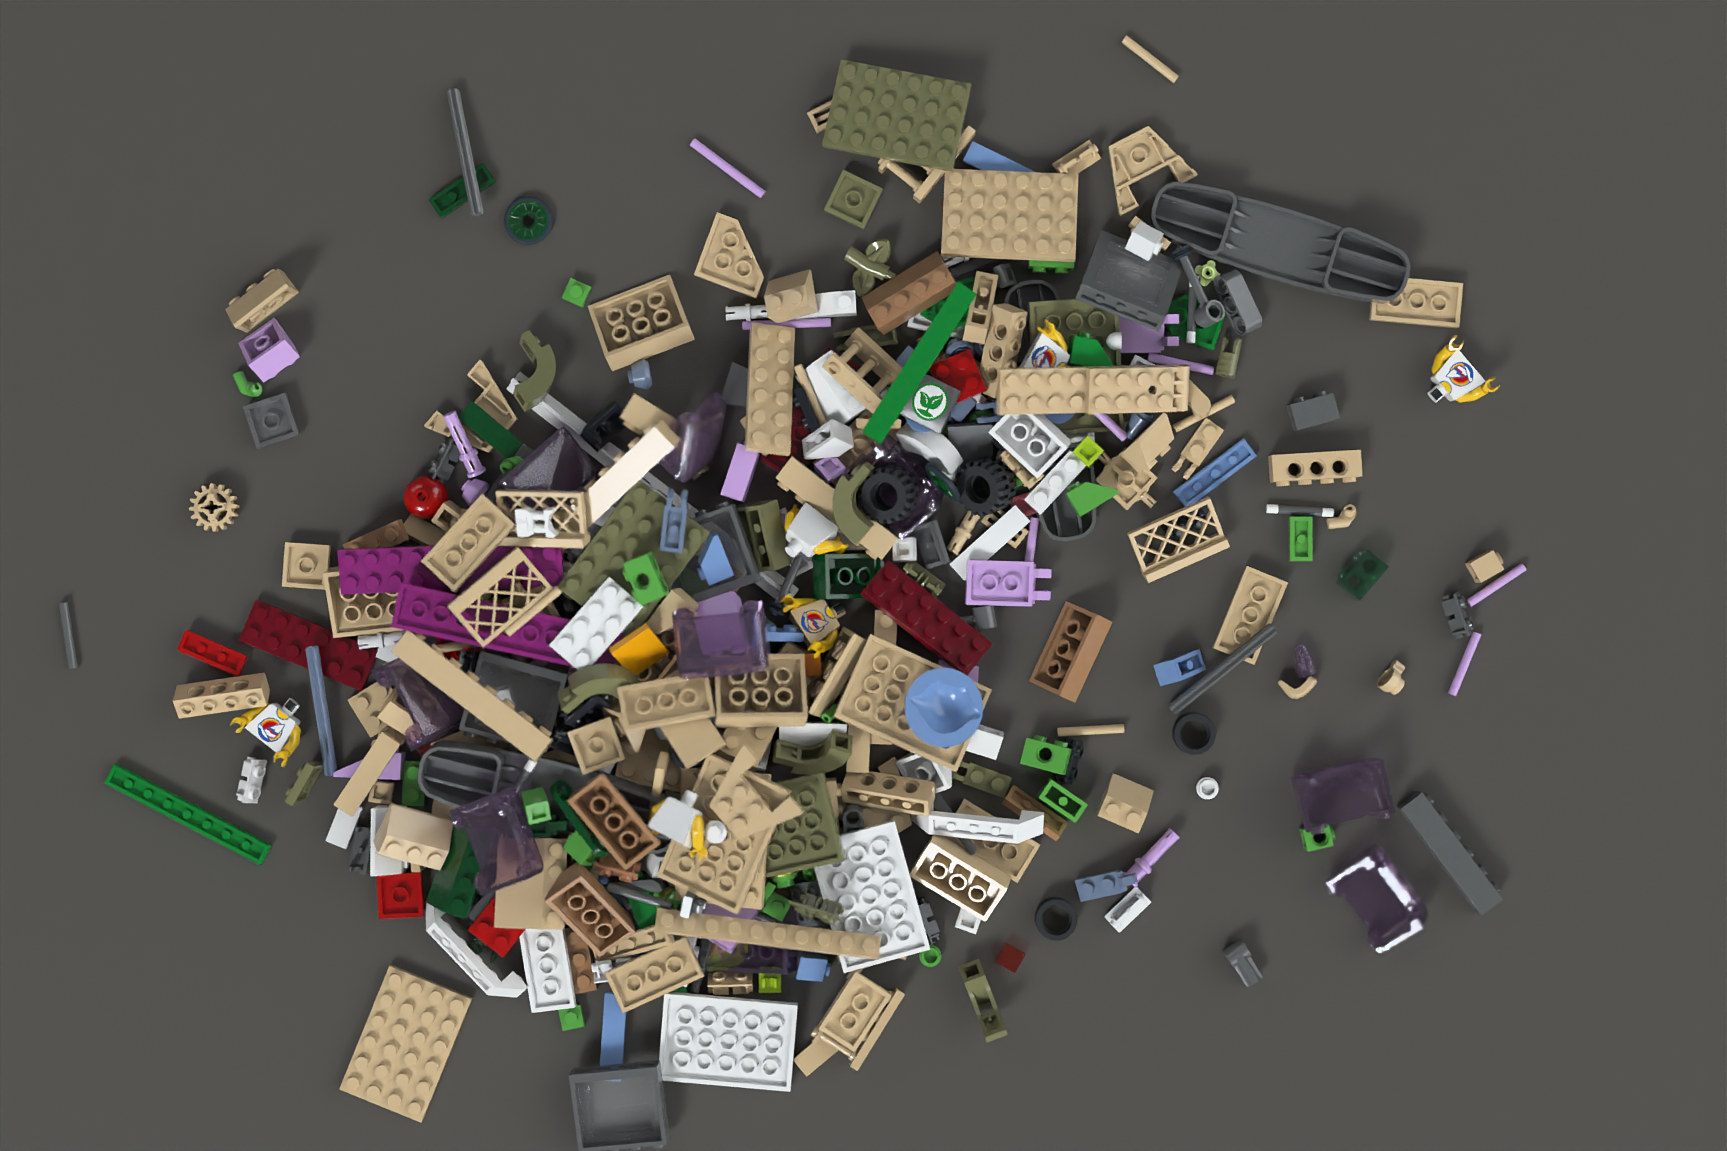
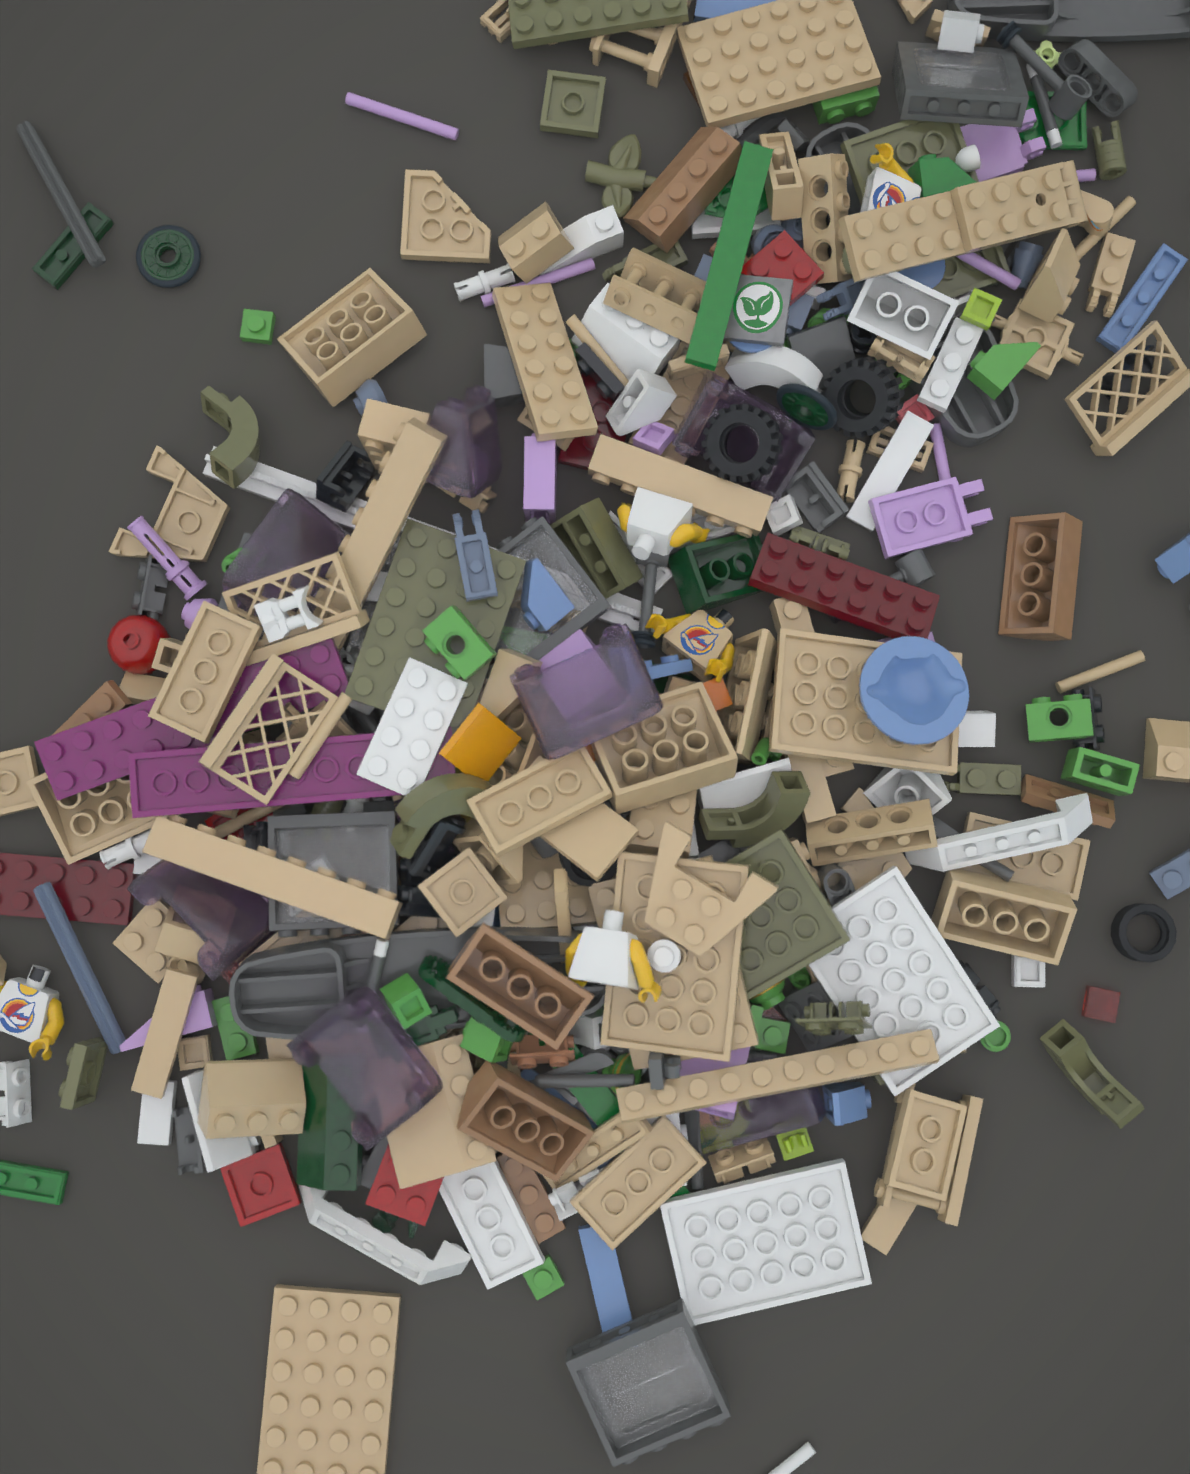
camera: 25 degrees left, 5 degrees down
(490, 430) = (196, 528): dark green tile -> none
(845, 509) = (694, 477): olive arch -> none

